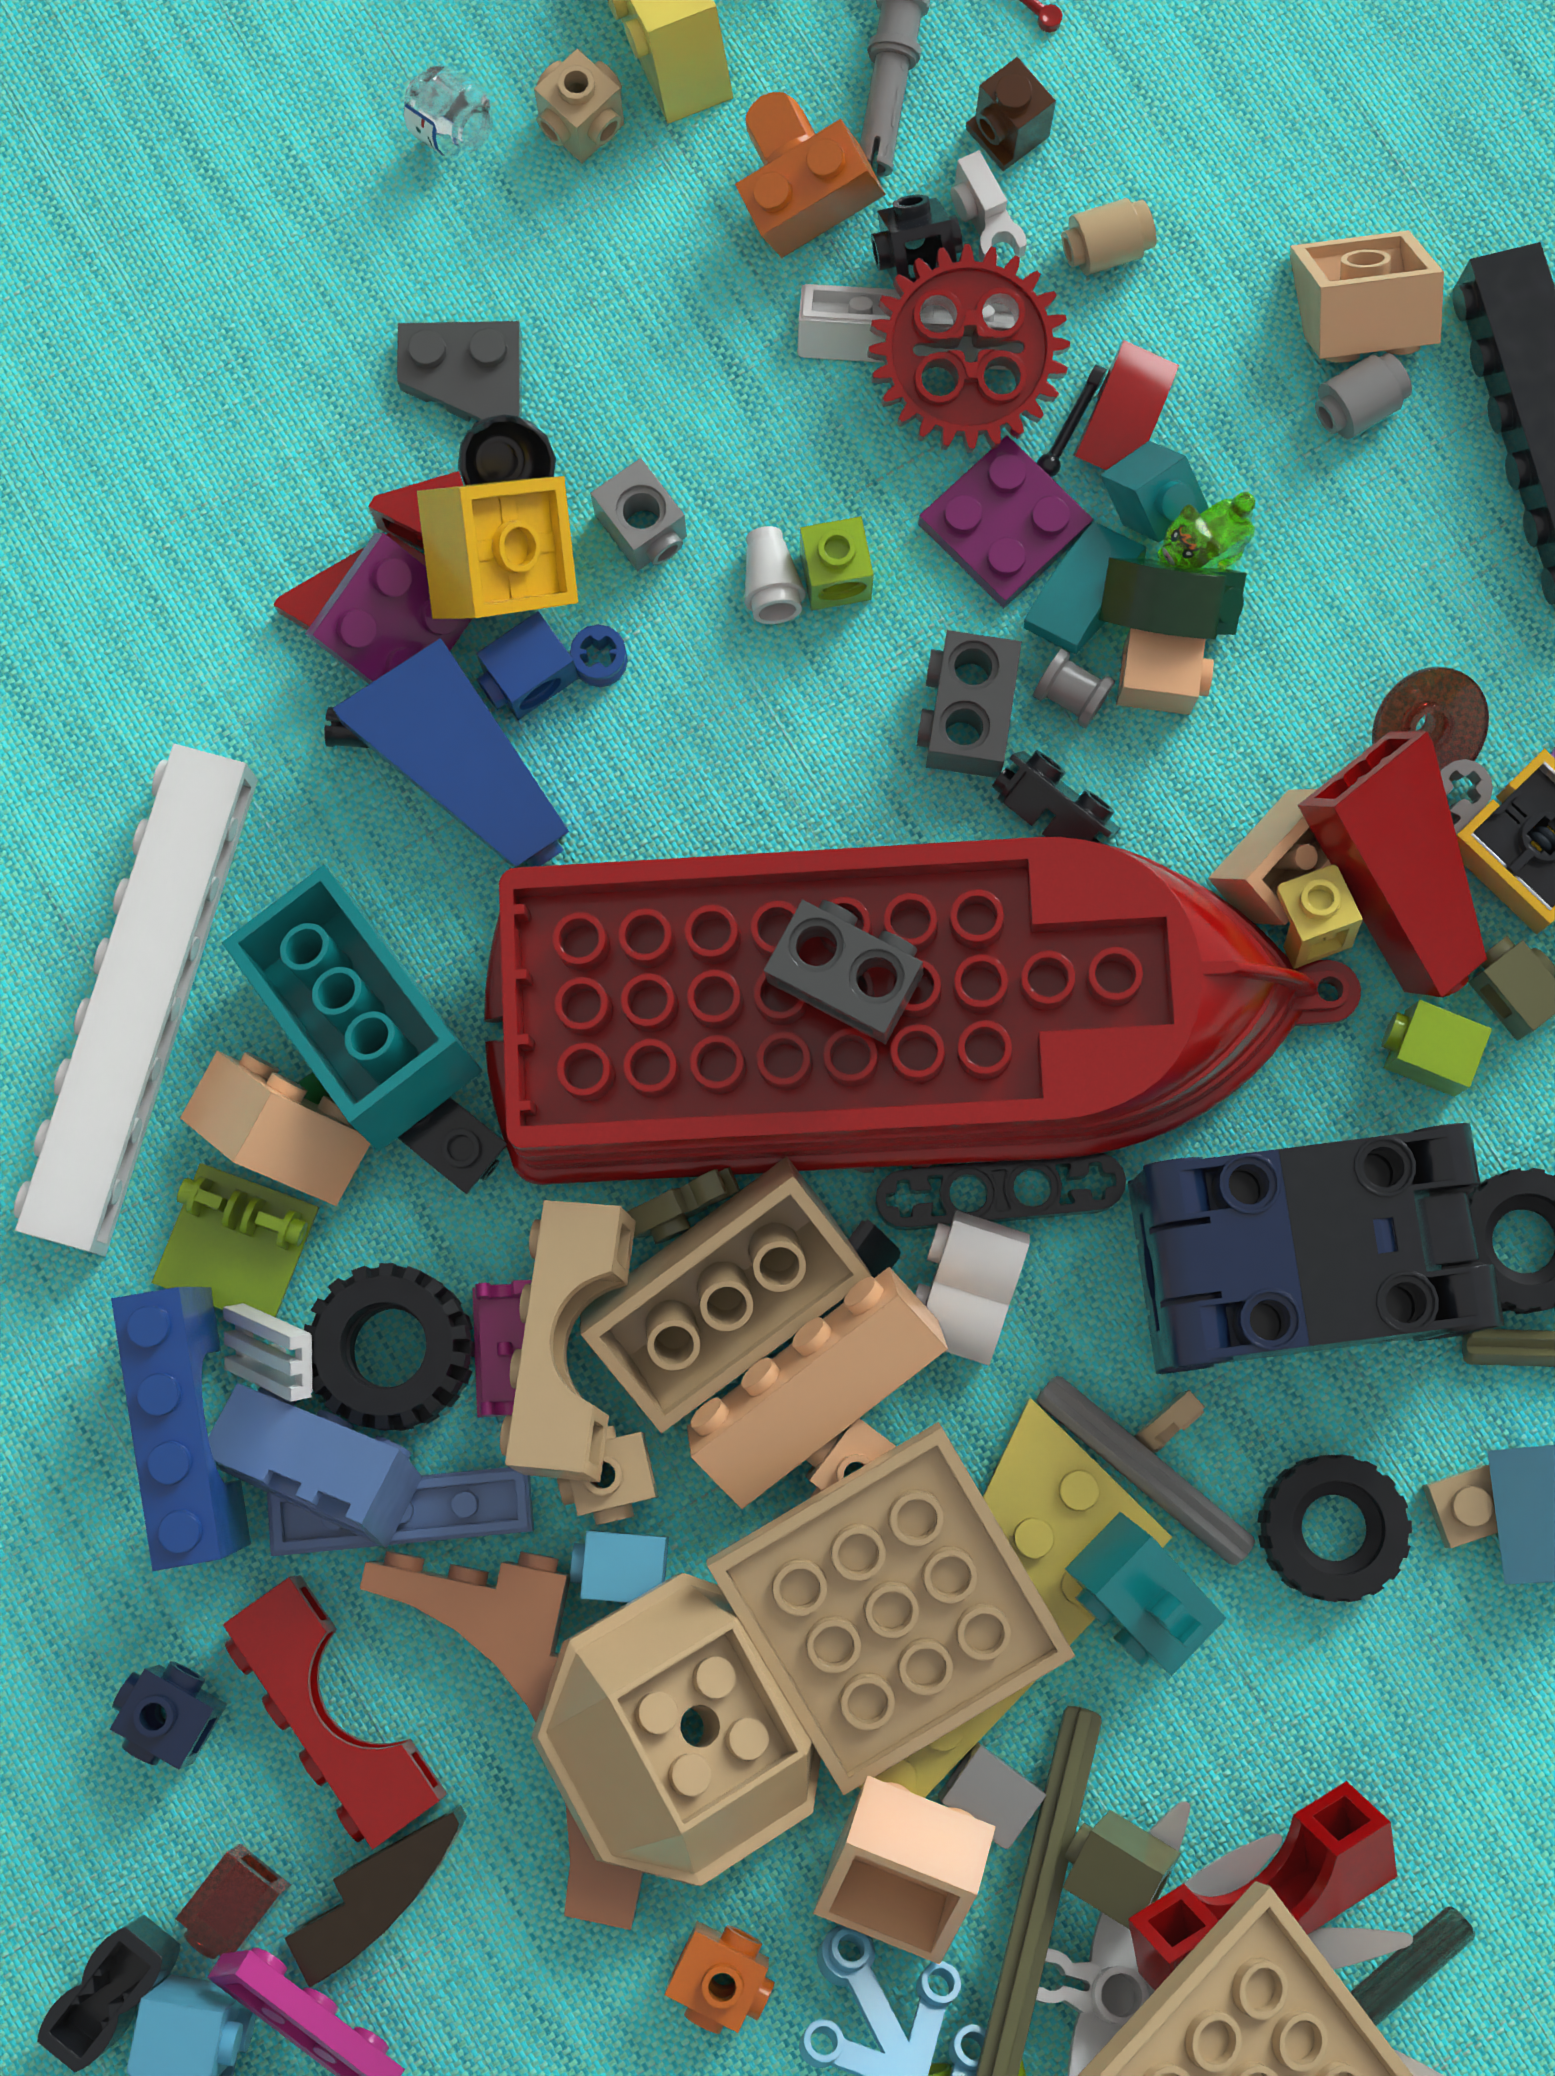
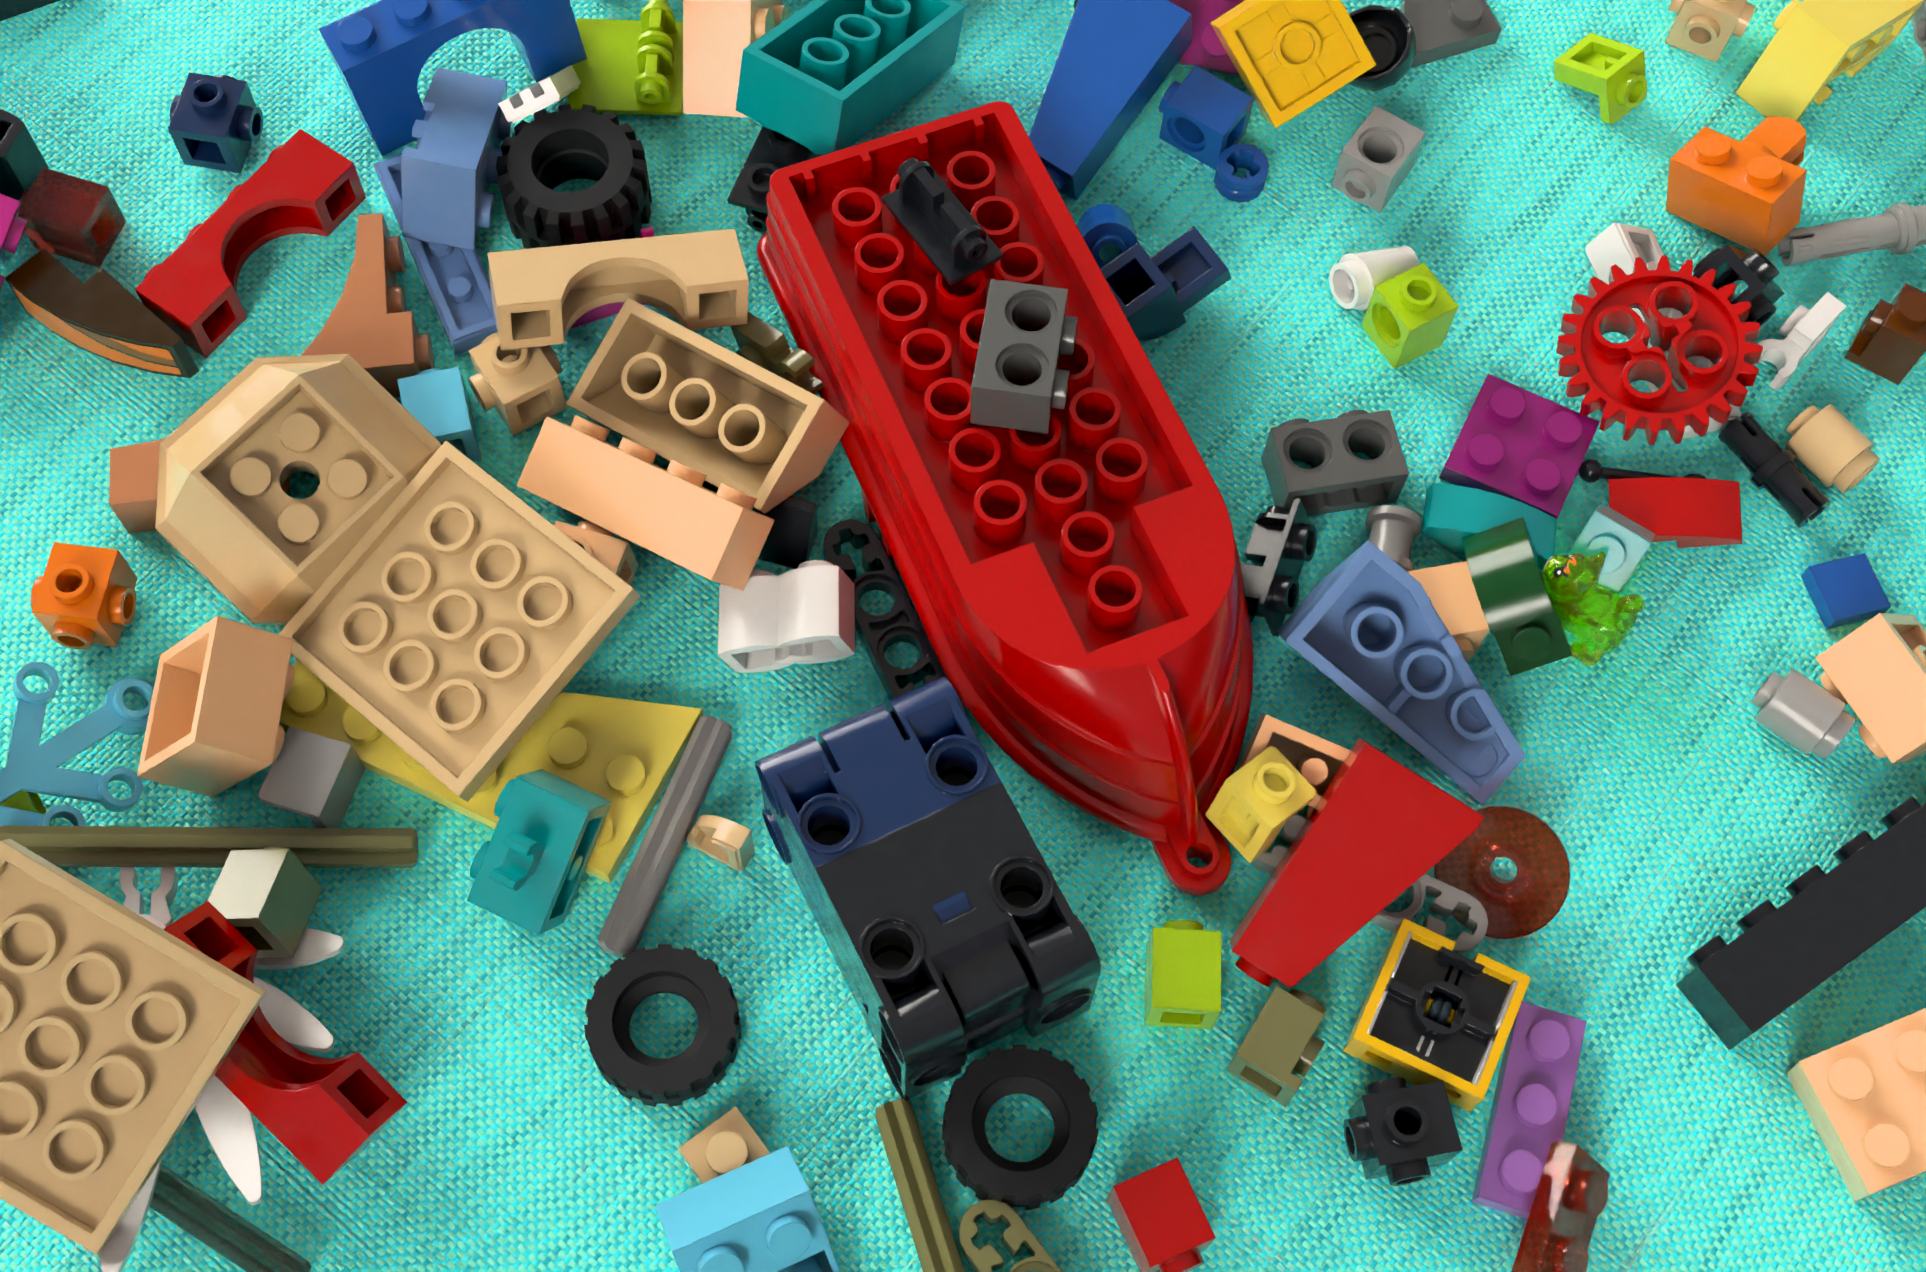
camera: 65 degrees right, 15 degrees down
(612, 244) = (1605, 69): none -> lime bracket
(649, 824) = (1107, 232): none -> blue brick
(650, 993) = (940, 223): none -> black hinge
(722, 790) = (1163, 287): none -> dark blue brick
(1112, 296) = (1774, 469): none -> black pin
(1211, 735) = (1392, 653): none -> medium blue wedge
(1249, 294) = (1845, 591): none -> blue tile

